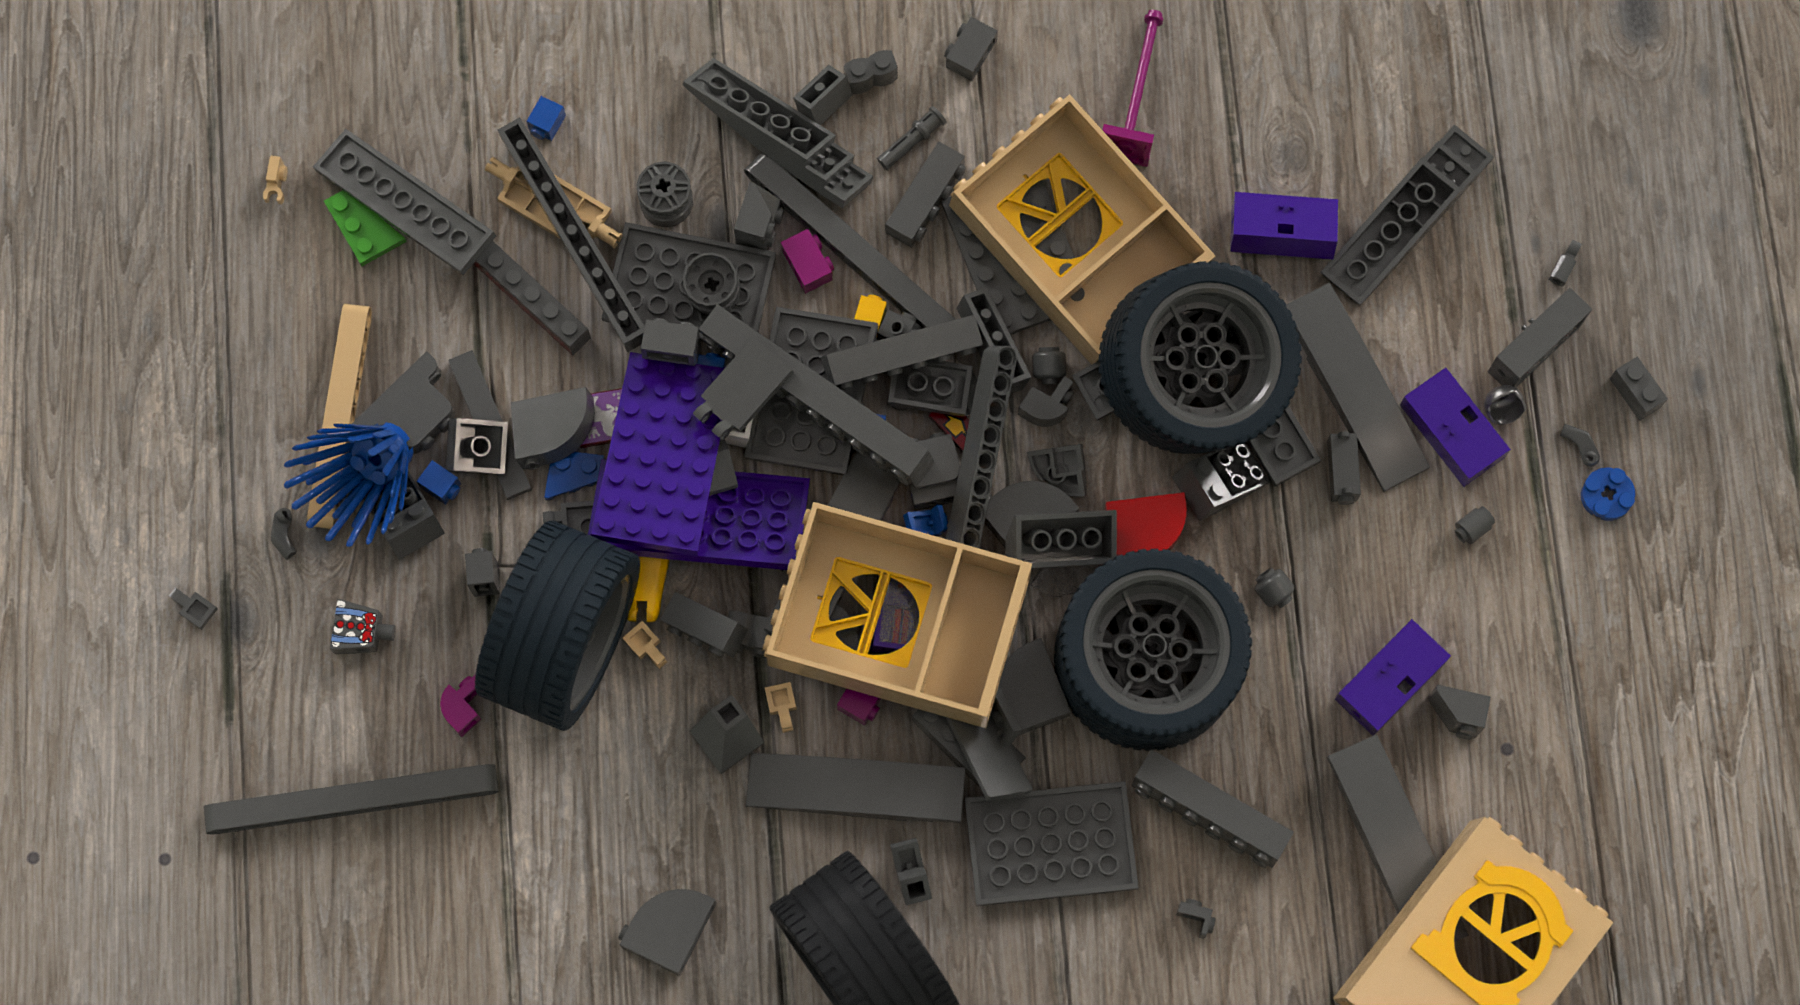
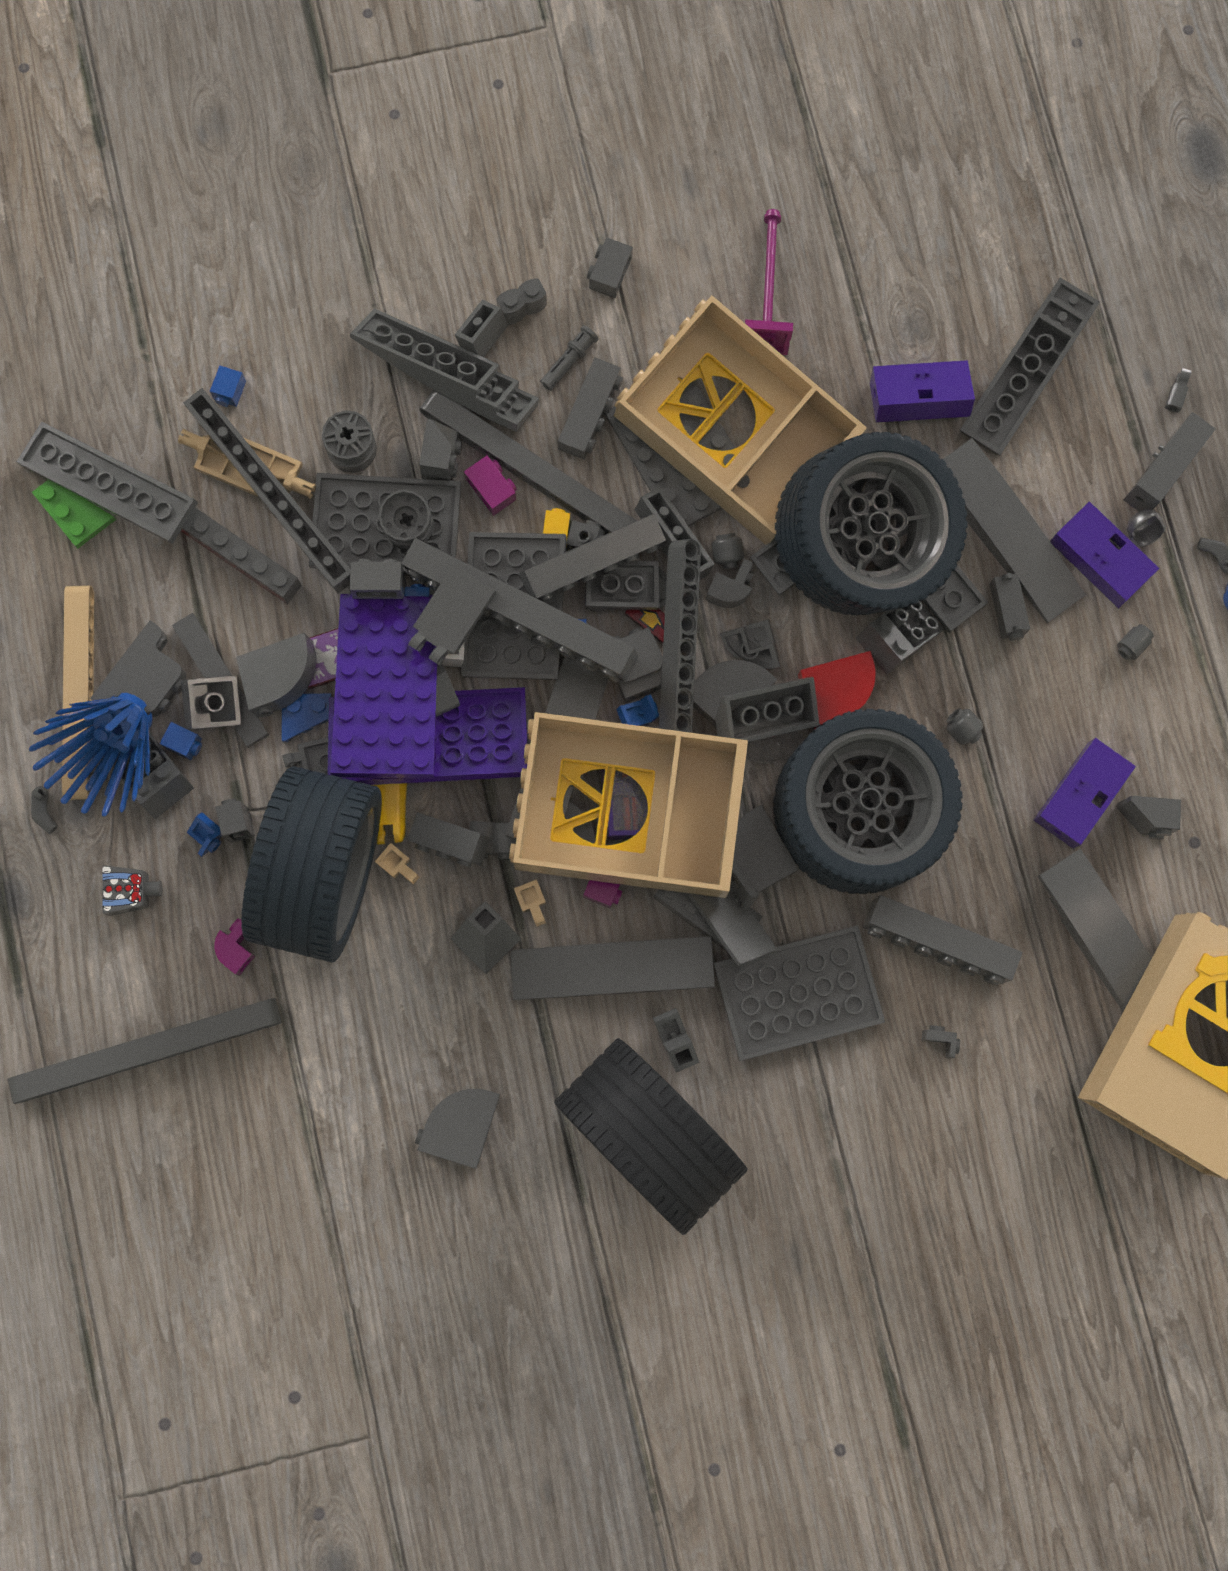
camera: 15 degrees left, 5 degrees up
(449, 582) = (205, 833): none -> blue bracket

